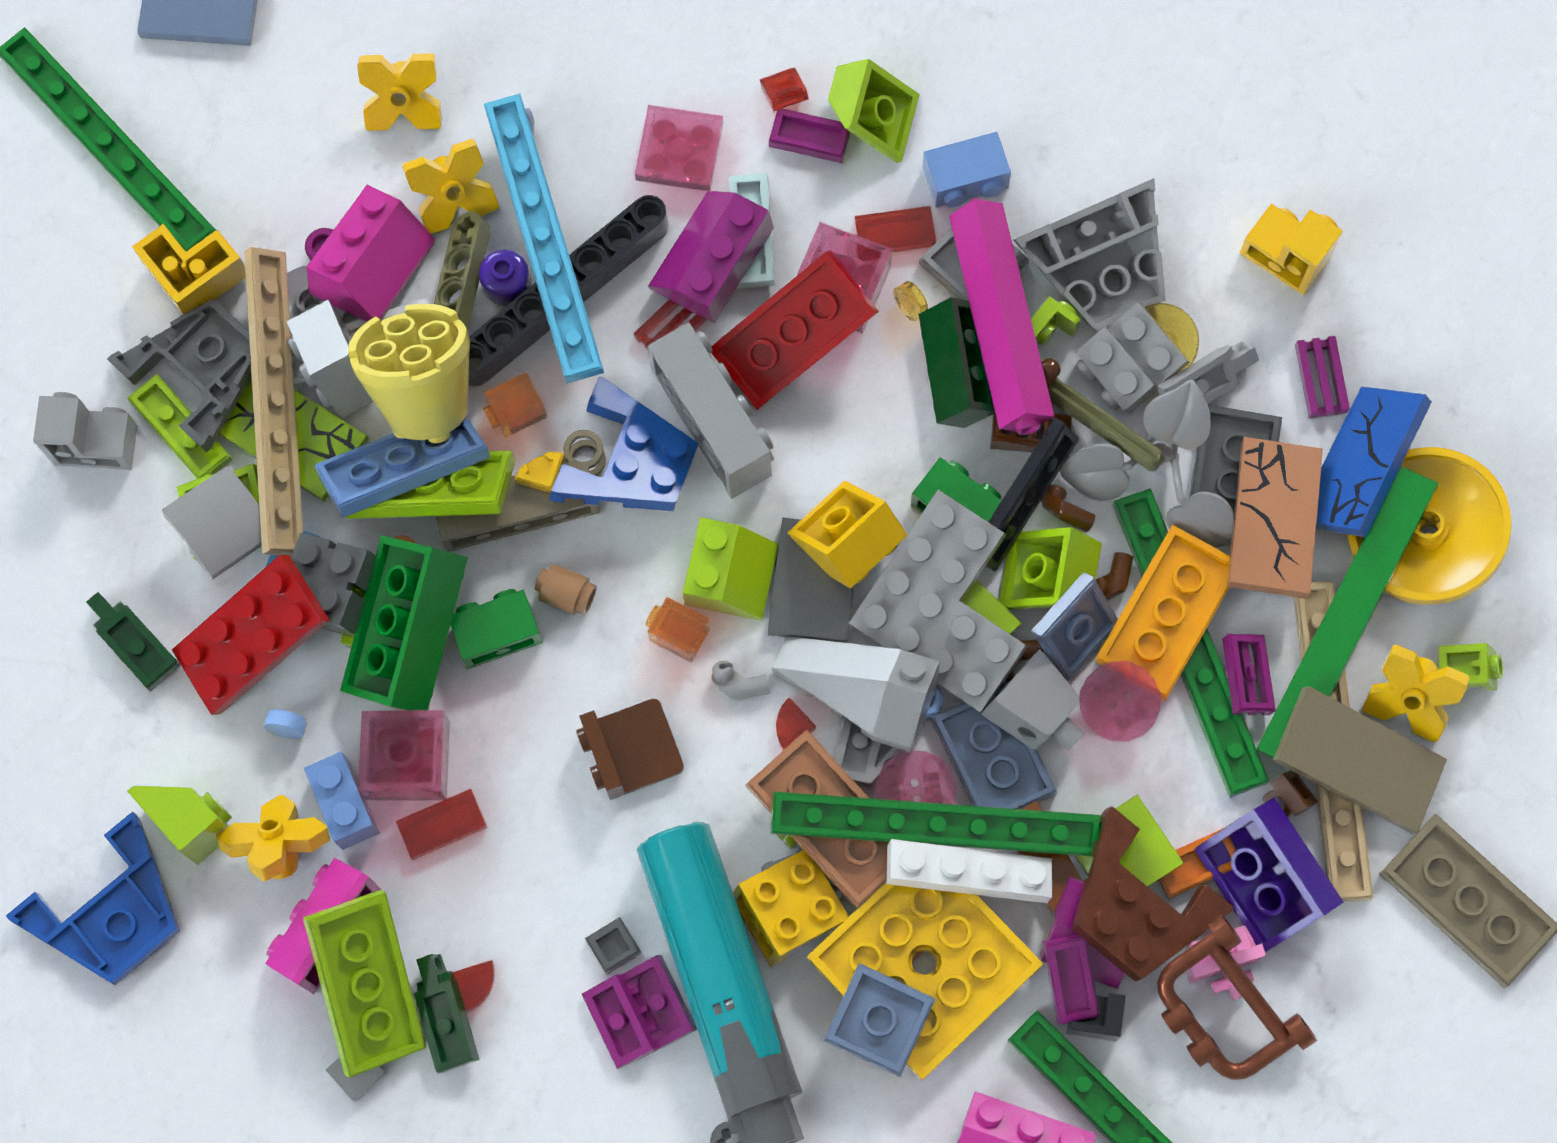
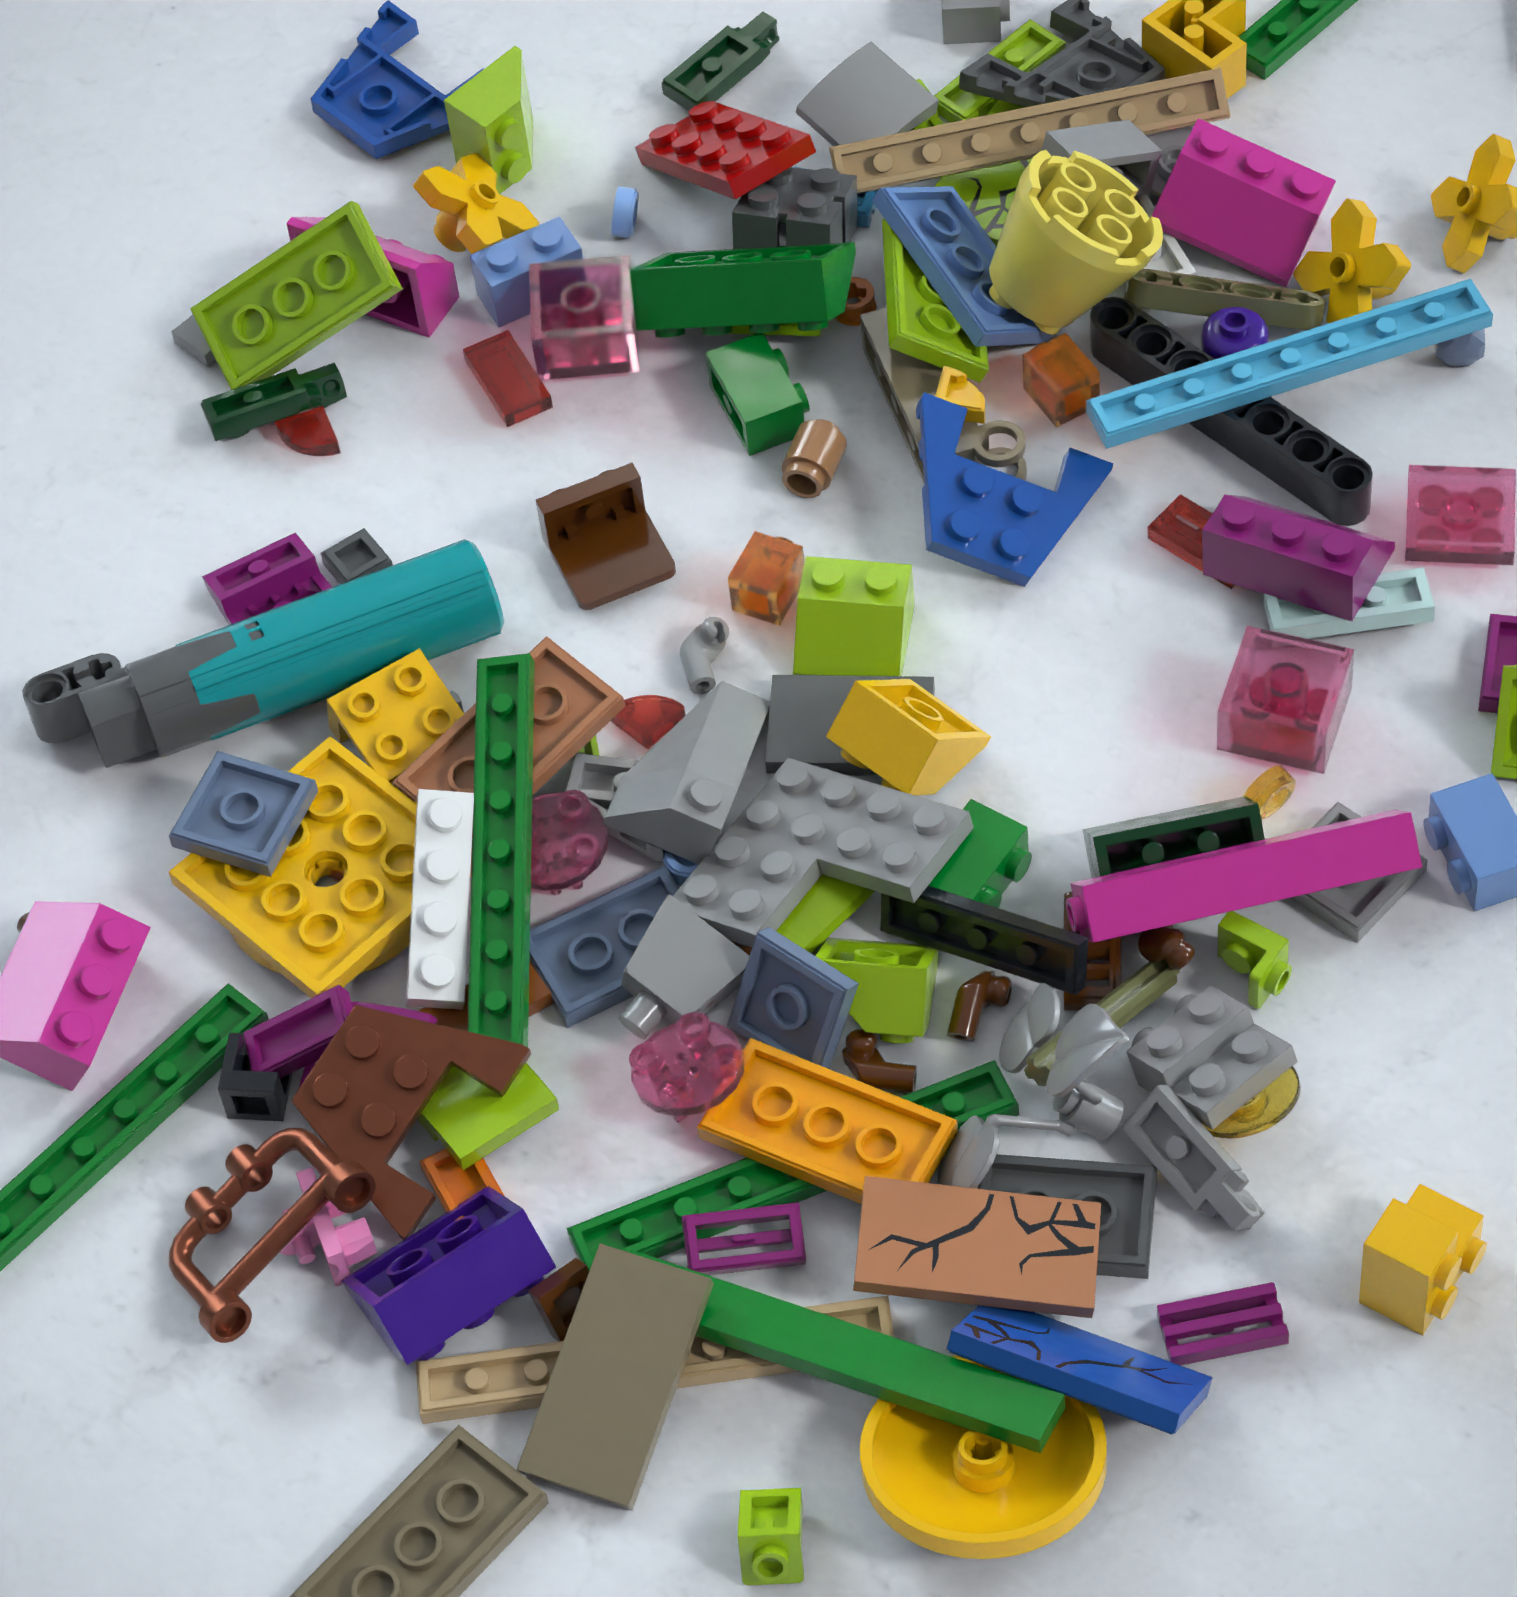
camera: 90 degrees right, 20 degrees down
(711, 410) = (1066, 567): light grey brick -> none
(793, 329) = (1190, 637): red plate -> none
(898, 229) = (1377, 769): clear red tile -> none
(1103, 256) = (1366, 1009): light grey wedge -> none
(1417, 690) = (723, 1443): yellow plant -> none

